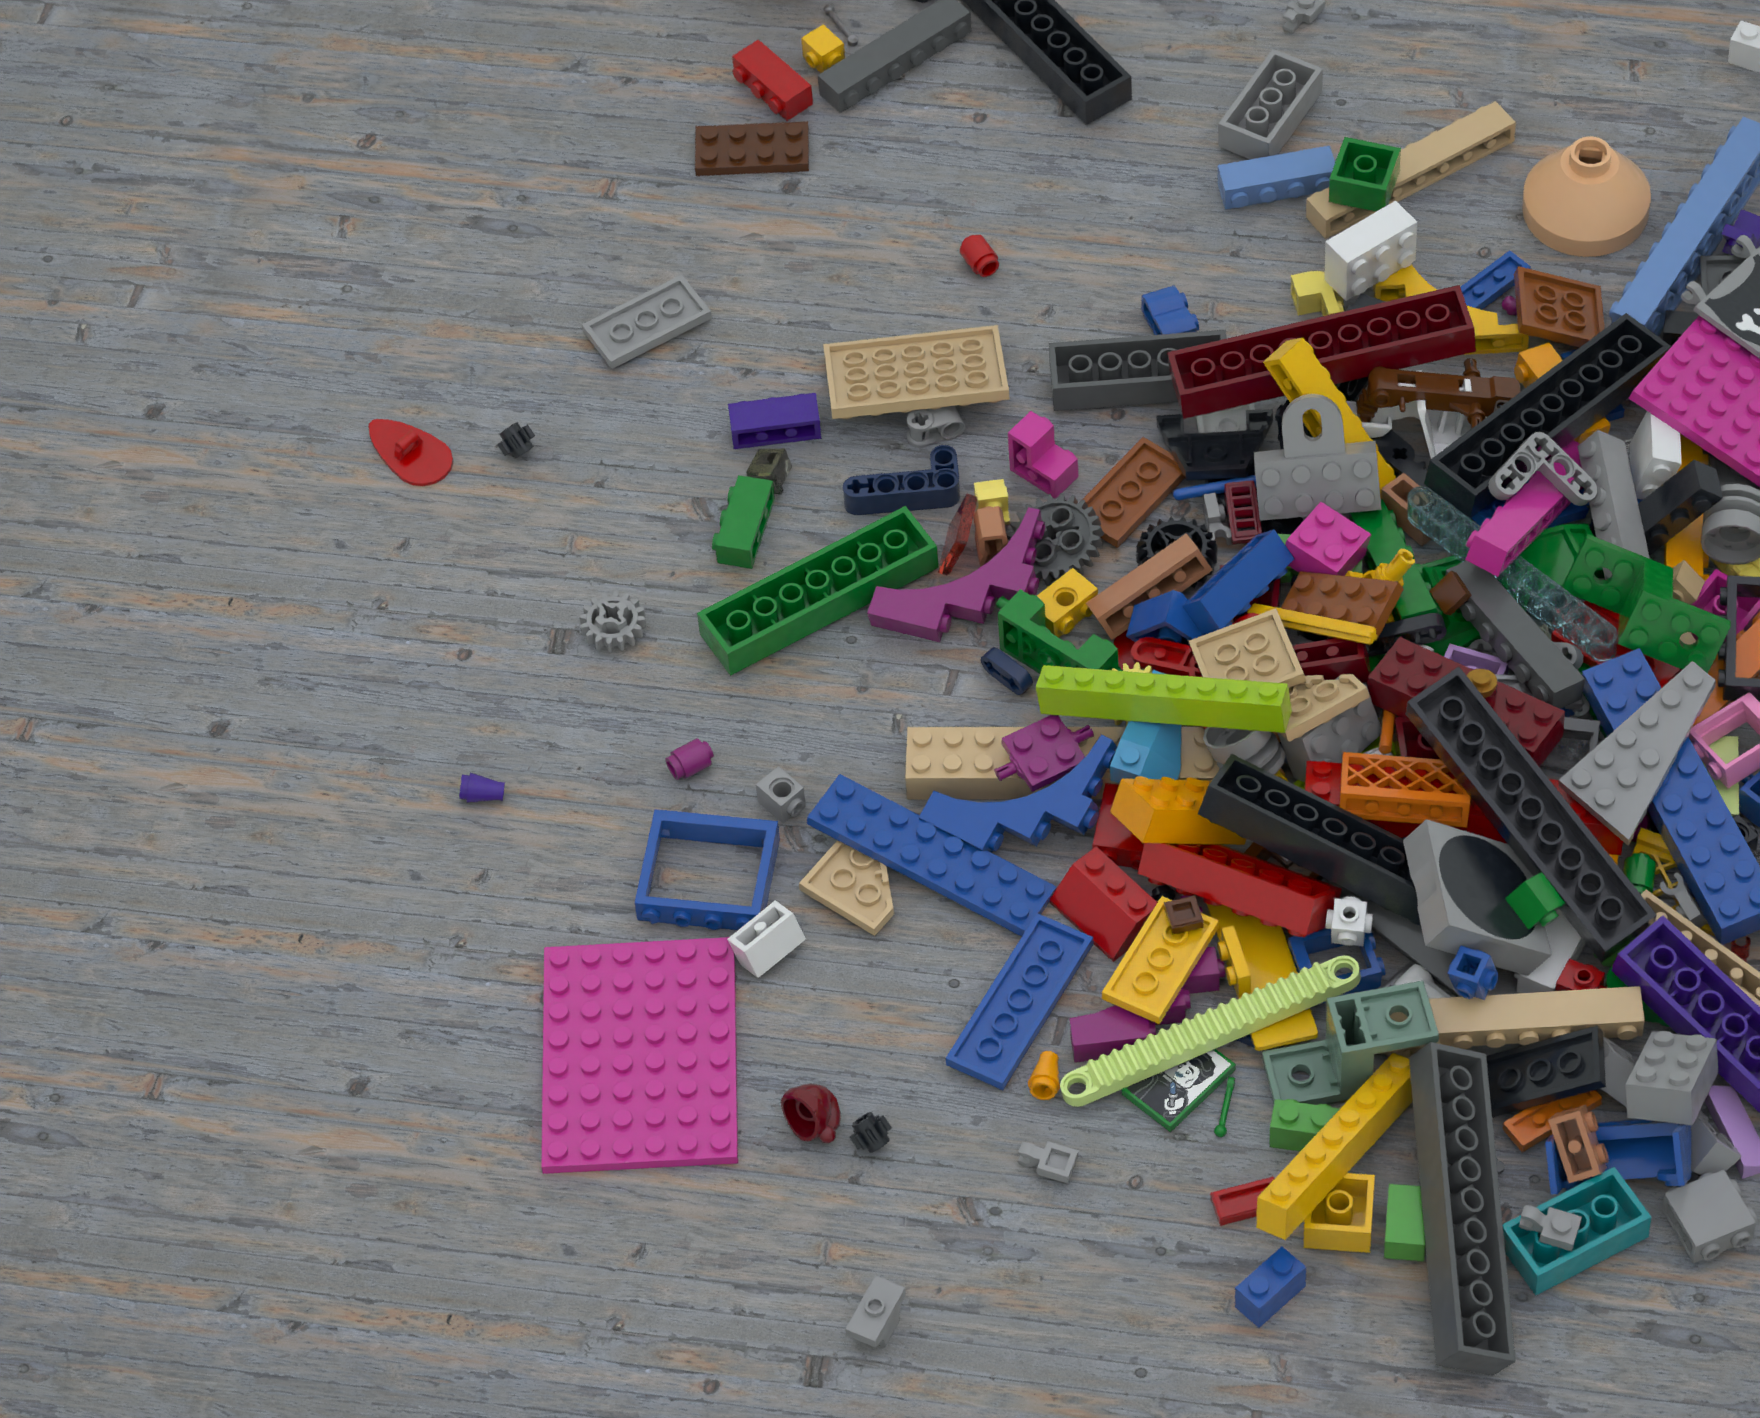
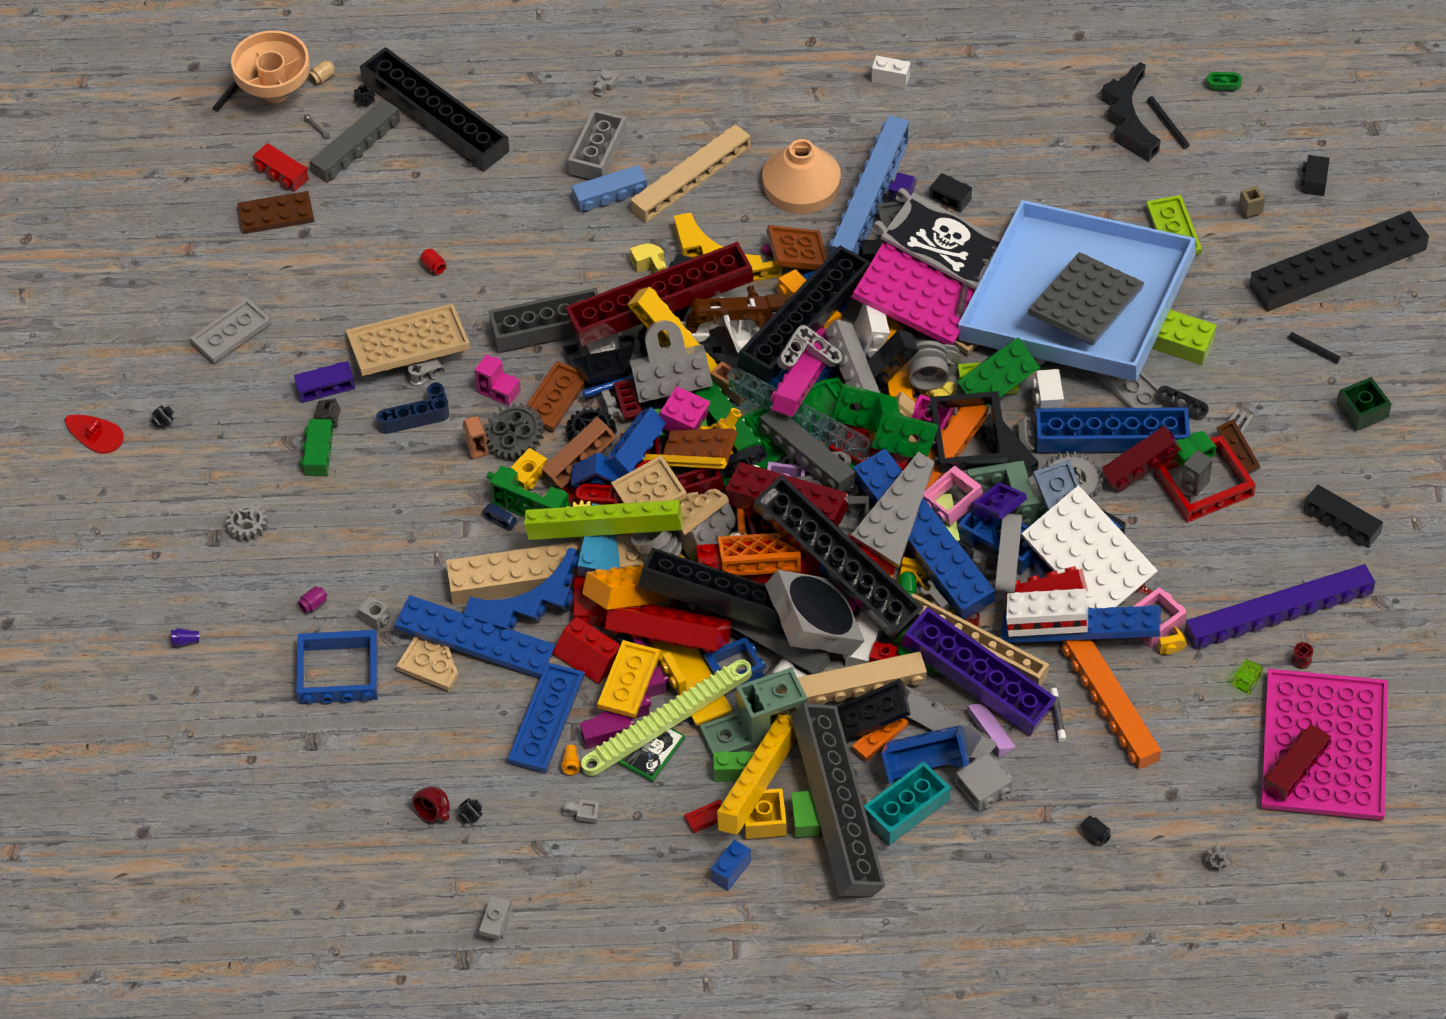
camera: 15 degrees left, 0 degrees up
(639, 1056) = (316, 786): dark pink plate -> none
(762, 945) = (383, 703): white brick -> none
(817, 590) = (372, 483): green brick -> none
(822, 48) = (309, 144): yellow brick -> none
(930, 610) = (444, 487): magenta arch -> none
(957, 534) = (454, 437): clear red tile -> none
(992, 494) = (470, 409): light yellow brick -> none
(1043, 752) = (533, 563): magenta plate -> none
(1168, 312) = (557, 281): blue brick -> none
(1183, 915) = (638, 649): reddish brown tile -> none
(1220, 1130) = (683, 776): green hinge -> none
(1349, 921) = (739, 638): white brick -> none
(1364, 174) = (664, 180): green brick -> none
(1370, 251) = (677, 227): white brick -> none
(1450, 593) = (765, 431): reddish brown tile -> none
(1472, 973) = (820, 658): blue brick -> none
(1484, 681) = (796, 480): pearl gold plate -> none
(1492, 281) = (754, 235): blue plate -> none
(1535, 901) = (850, 610): green brick -> none
(1556, 1227) = (896, 802): light grey plate -> none
(1578, 1143) = (900, 751): nougat brick -> none
(1672, 1078) = (949, 703): light grey brick -> none

